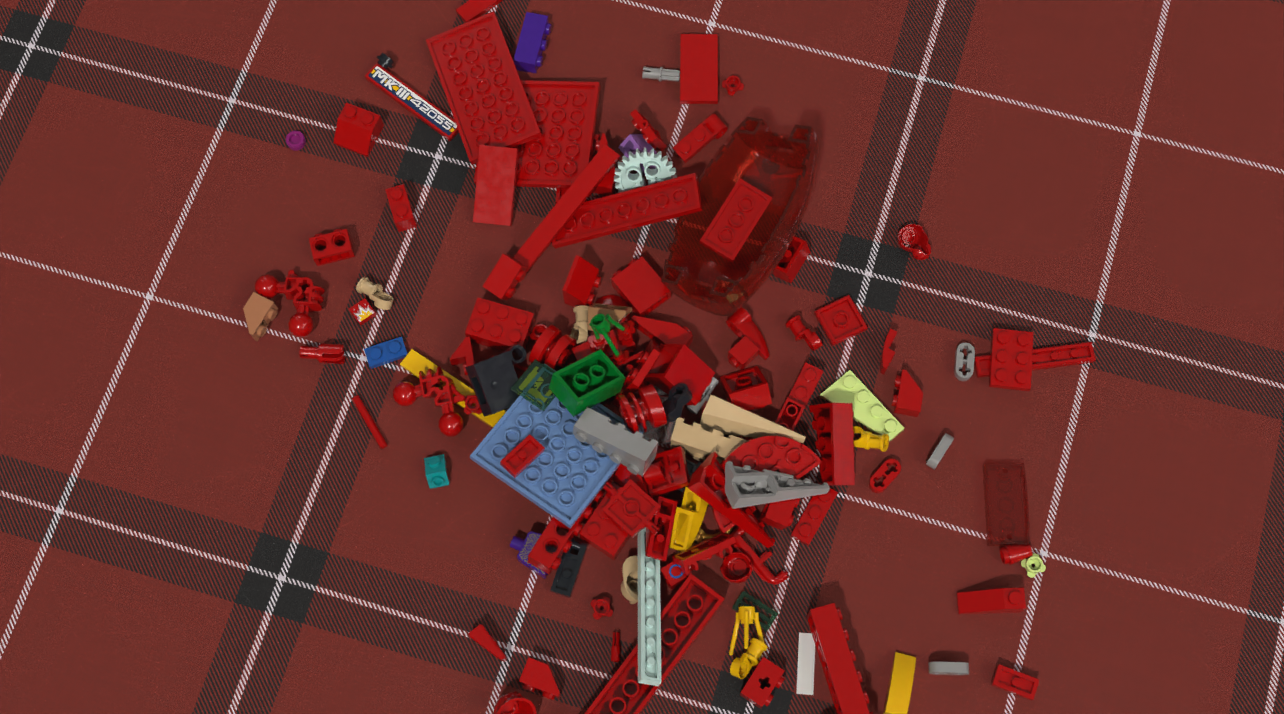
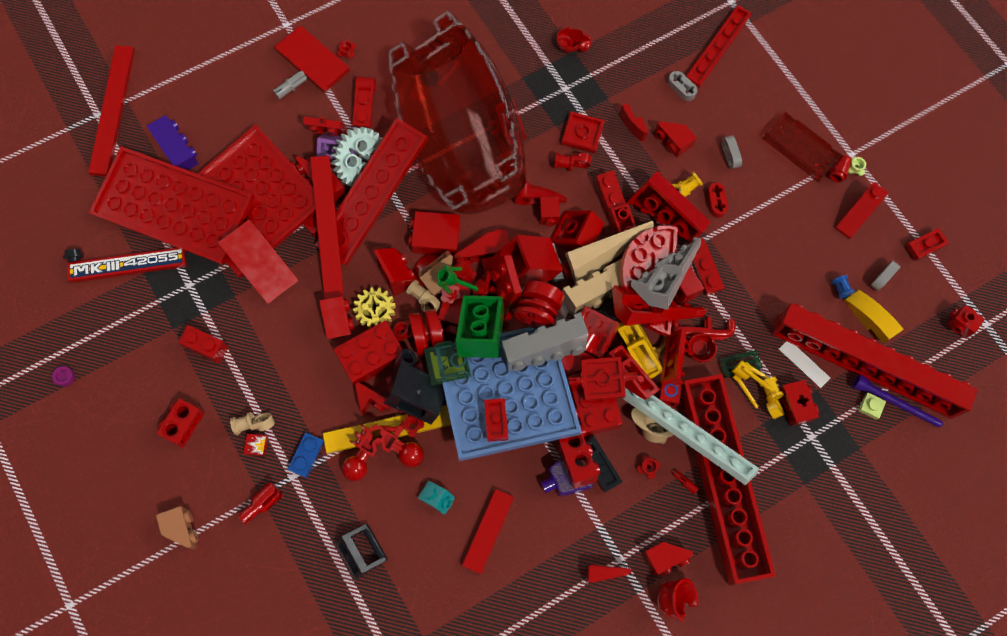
camera: 55 degrees left, 0 degrees up
(303, 293) = (218, 499): red piece -> none
(341, 449) = (353, 557): none -> black tile
(357, 129) = (106, 322): red slope -> none
(369, 422) = (349, 515): red bar -> none
(444, 530) = (488, 531): none -> red tile
(539, 289) = (367, 308): none -> light yellow gear
(677, 398) = (552, 274): black piece -> none
(736, 220) = (450, 129): red plate -> none
(865, 405) = (639, 169): yellowish green wing -> none
(903, 640) = (843, 286): none -> blue bush
(1011, 359) = (708, 57): red plate -> none

